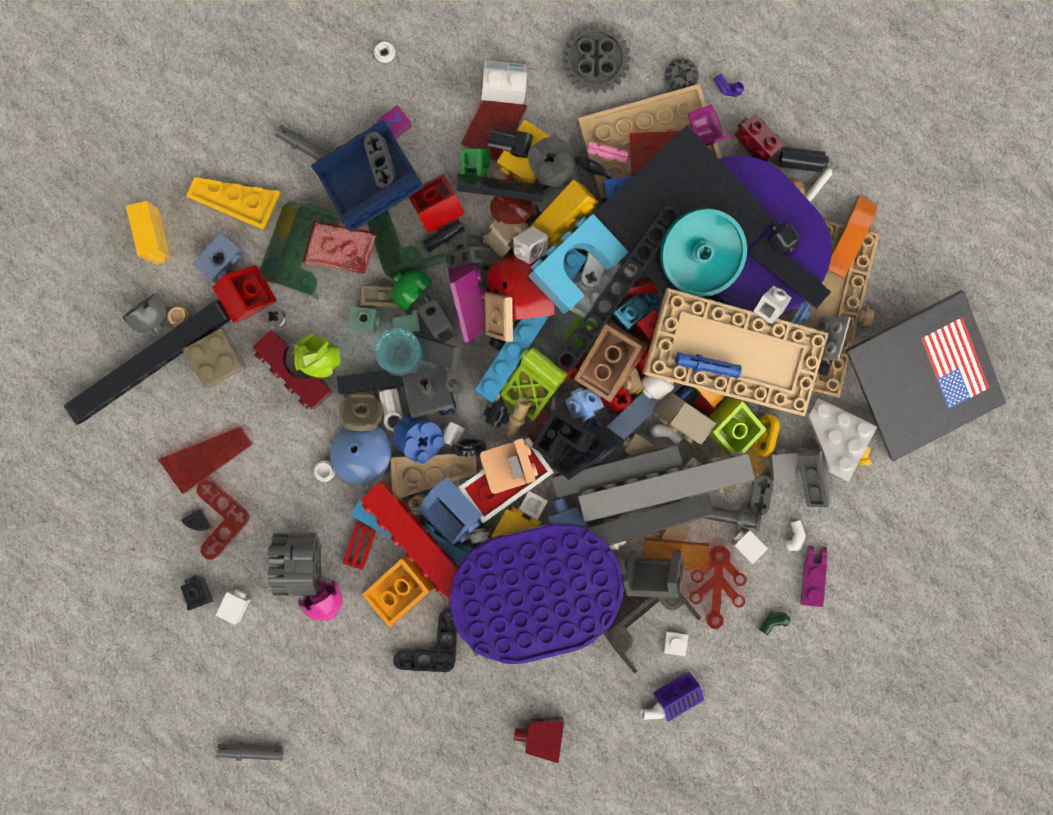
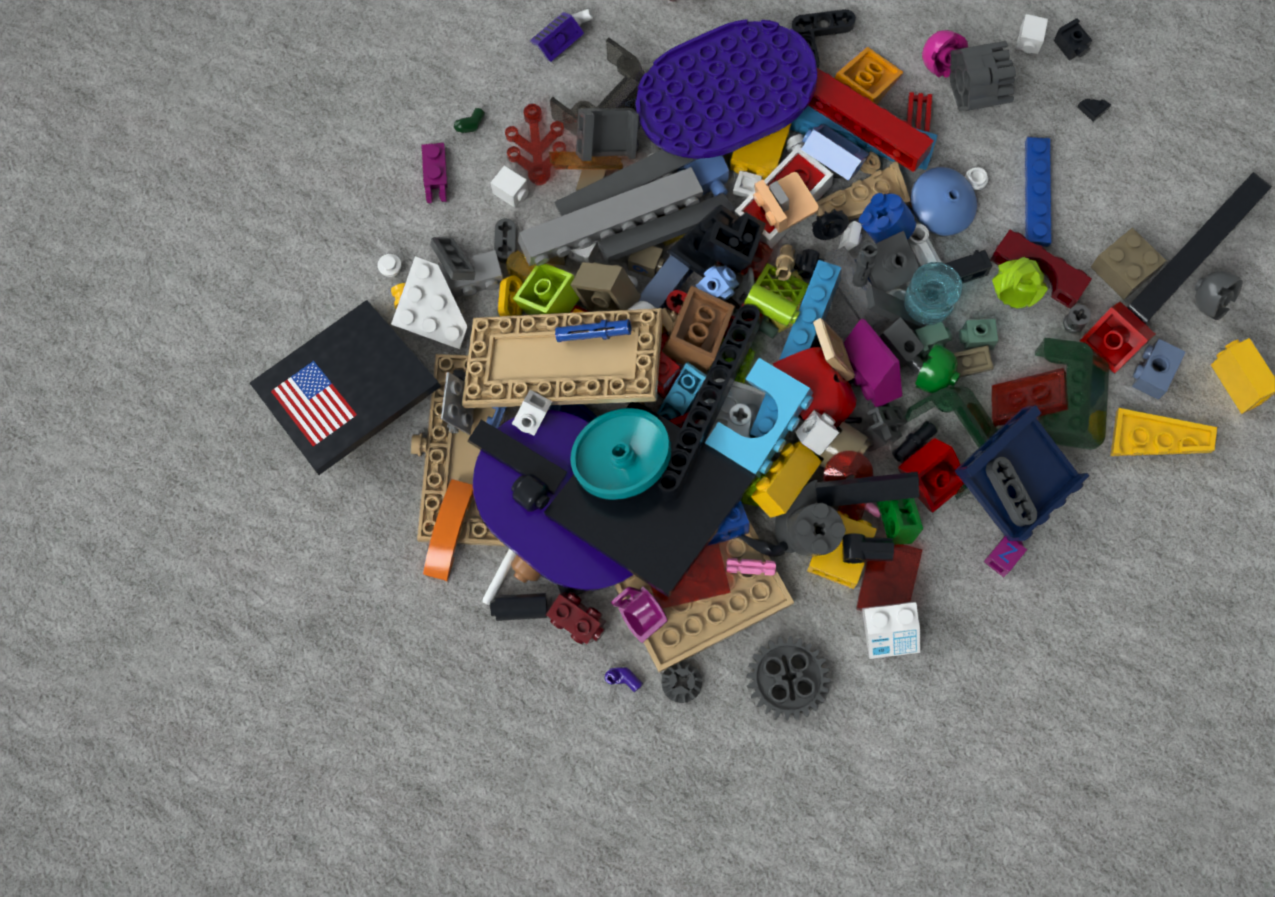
camera: 170 degrees right, 15 degrees down
(177, 315) = (1181, 302): tan plate -> none
(201, 460) = (1111, 163): clear red wing -> none
(228, 522) = (1061, 114): clear red beam -> none
(272, 448) = (1038, 191): none -> blue plate
(298, 142) = (1100, 511): dark grey pin -> none
(361, 422) = (946, 228): dark tan plate -> none
(384, 46) = (1045, 634): white plate -> none
(675, 643) = (569, 85): white plate -> none
(739, 518) = (524, 209): dark grey pin -> none
(798, 537) = (458, 203): white arm -> none
(868, 491) = (389, 265): none -> white plate

